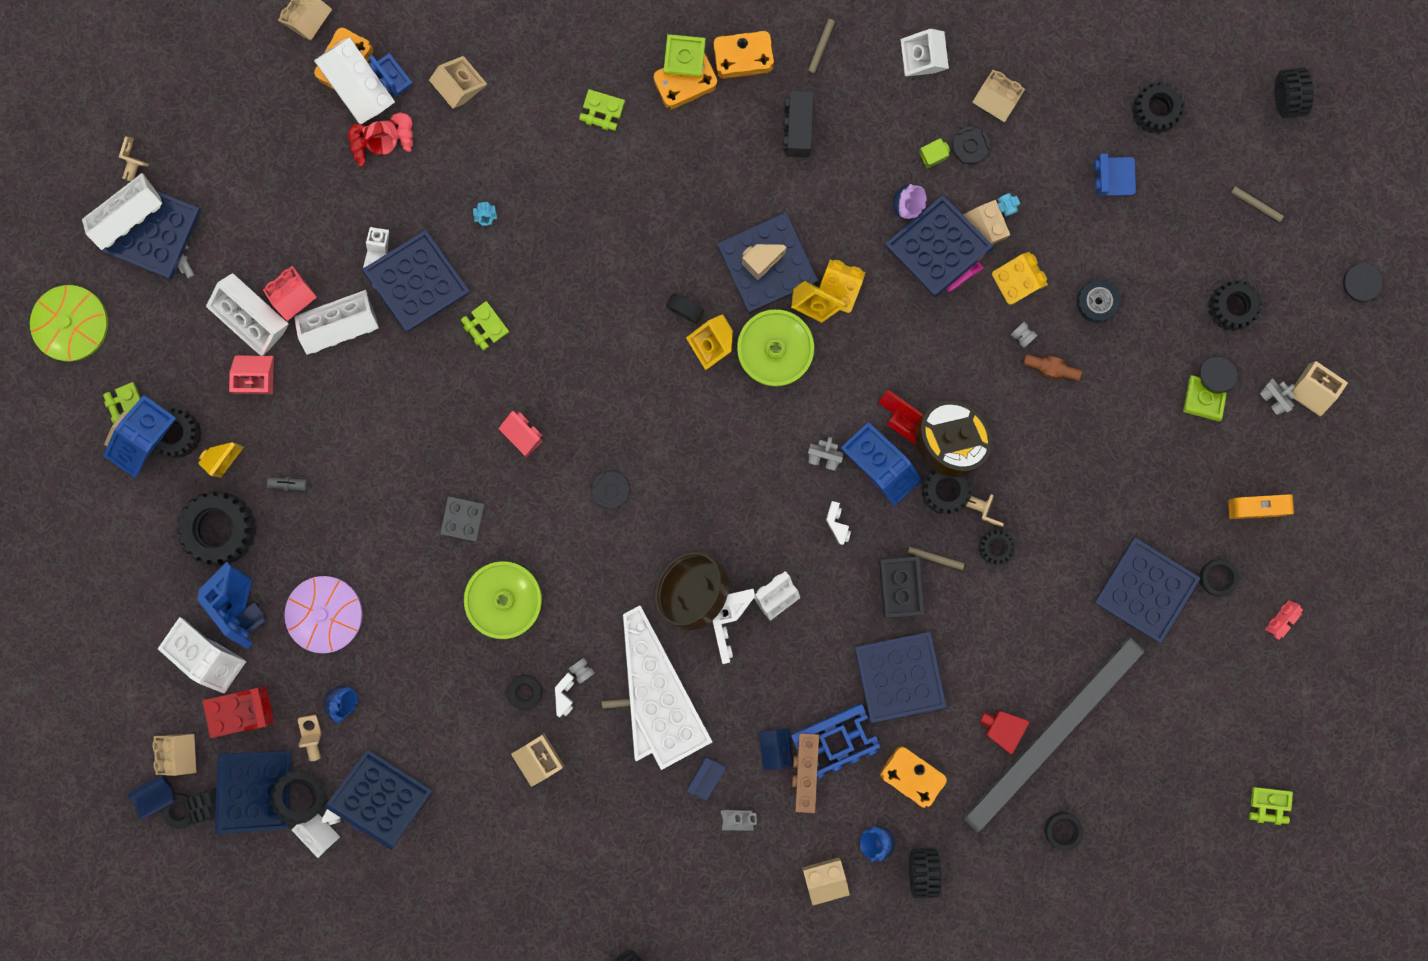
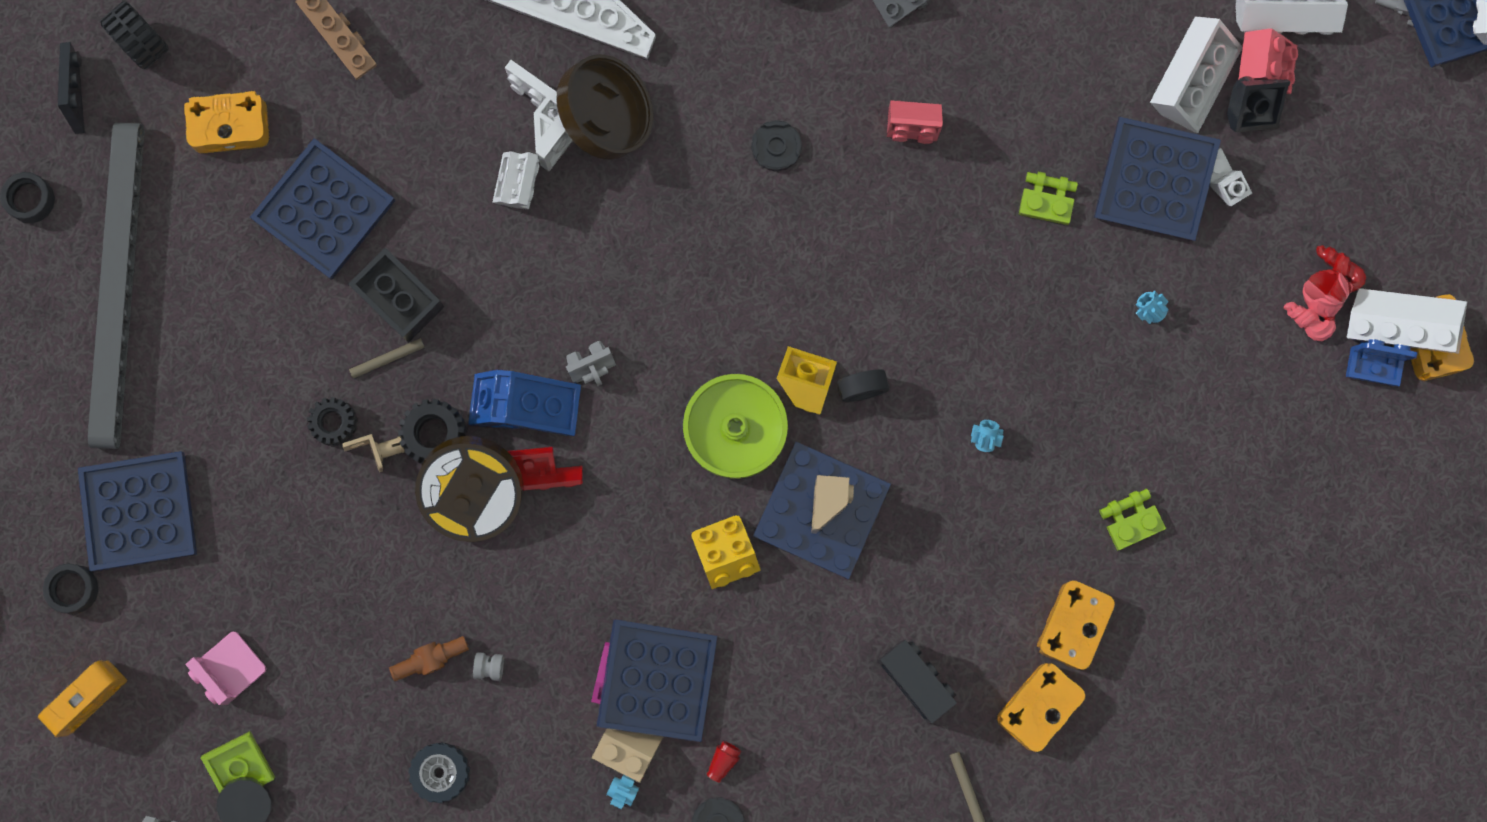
camera: 140 degrees right, 5 degrees down
(320, 273) = (1256, 104): none -> black slope
(457, 81) = (1304, 418): tan slope -> none
(640, 222) = (987, 435): none -> medium azure gear
(684, 55) = (1100, 646): lime plate -> none
(776, 749) = (388, 35): dark blue panel -> none
(815, 302) = (737, 509): yellow slope -> none
(829, 726) = (350, 106): blue fence -> none
(839, 530) = (511, 300): white slope -> none
(877, 843) = (207, 27): blue hair -> none
(909, 201) = (729, 701): lavender hair -> none
(934, 153) = (748, 780): lime brick -> none
(939, 174) = (723, 761): none -> red cone
(985, 877) = (70, 87): none -> black wing
(1004, 729) = (171, 246): red torso -> none
(1019, 277) = (543, 724): yellow bracket -> none
(1168, 457) = (226, 669): none -> bright pink bracket

